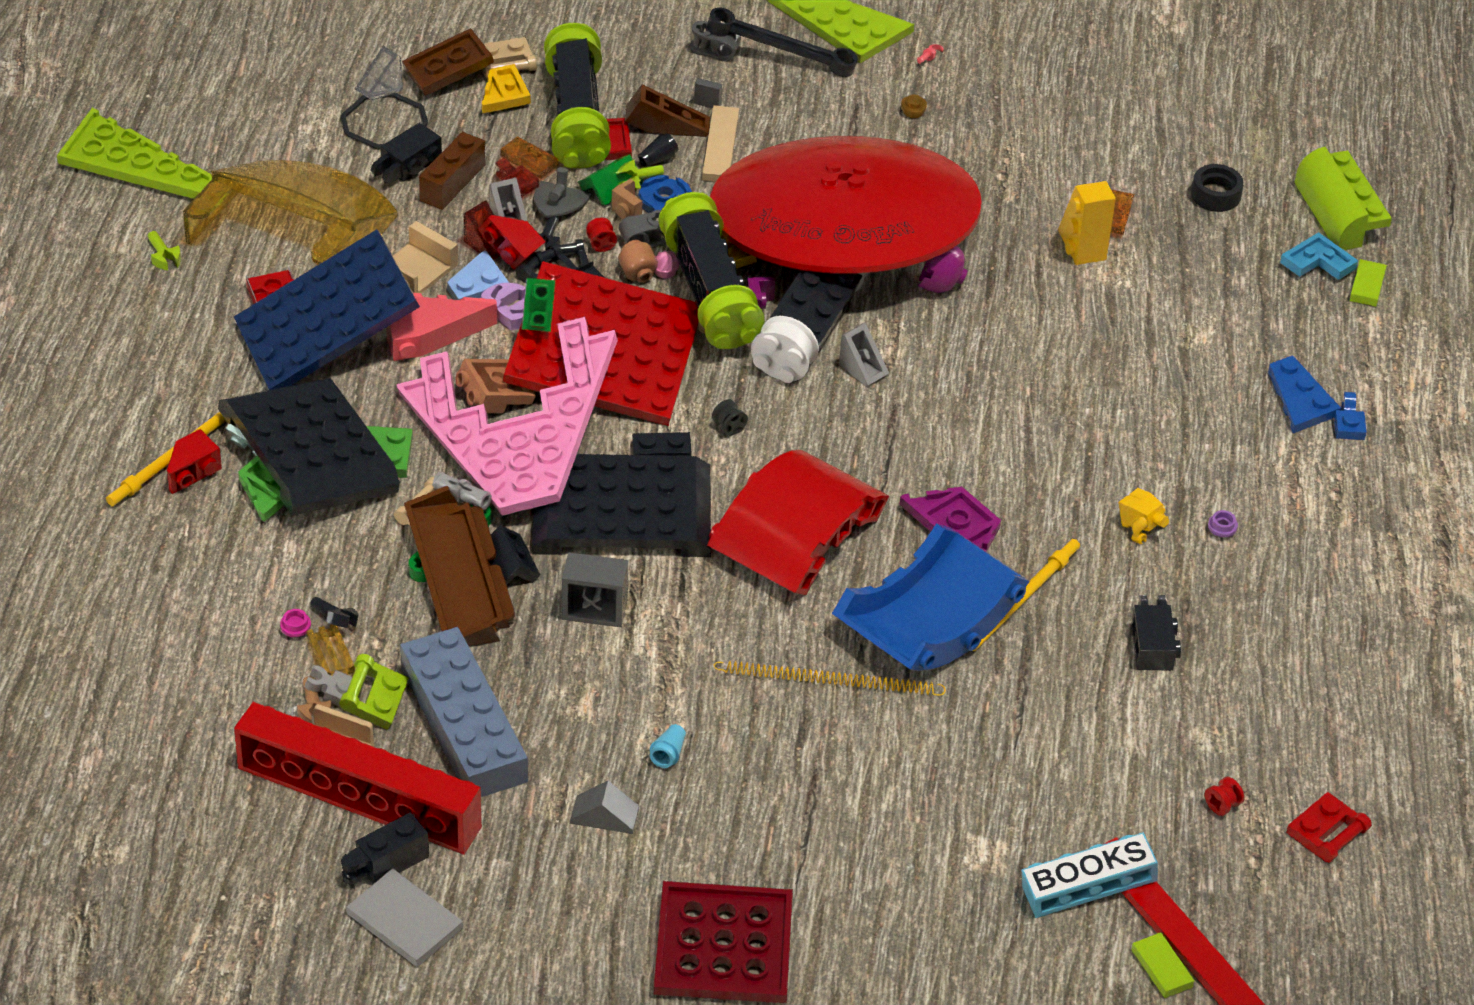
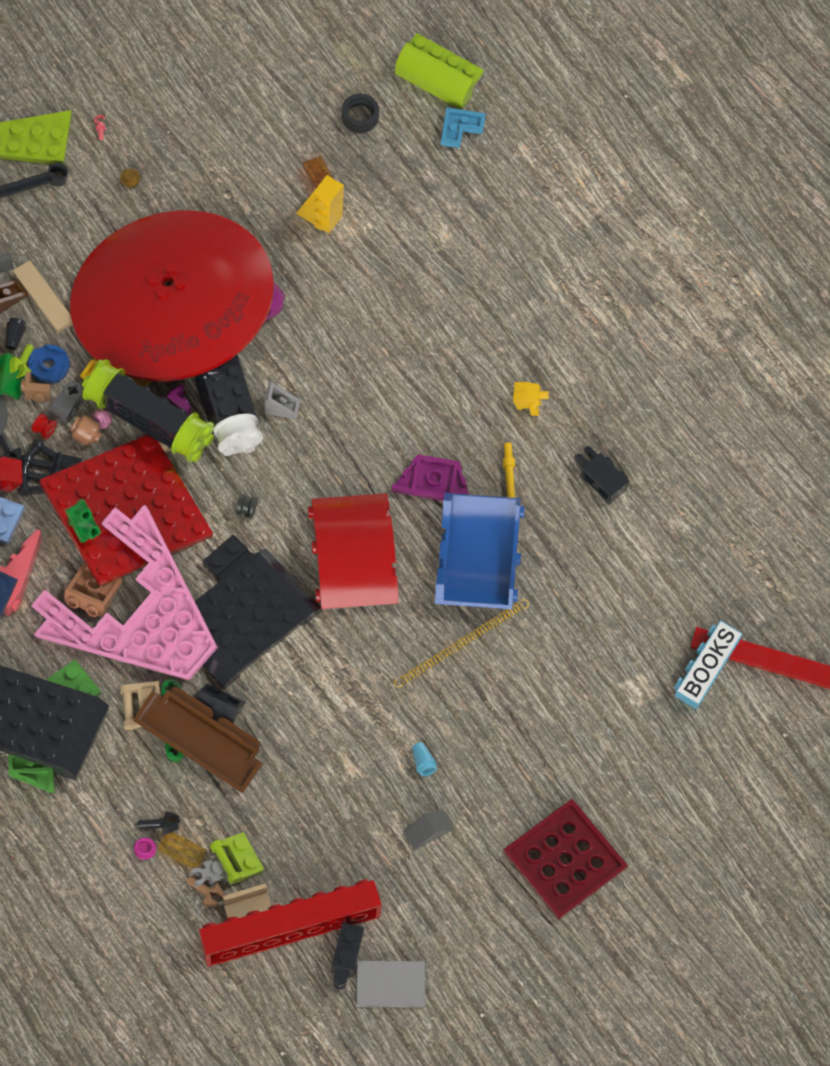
camera: 45 degrees left, 20 degrees up
(463, 490) = (167, 682): light grey pin -> none
(464, 712) = (298, 831): sand blue brick -> none
(506, 294) = (30, 514): lavender piece -> none
(594, 589) = (294, 691): dark grey brick -> none
(1162, 965) = (782, 687): lime tile -> none
(1223, 524) = (573, 363): medium lavender plate -> none
(1224, 796) = (726, 556): red wheel -> none
(1301, 394) = (534, 238): blue wing -> none
(1322, 820) = (781, 532): red plate -> none
(1348, 421) = (574, 239): blue plate -> none
(1368, 282) = (500, 124): lime tile -> none

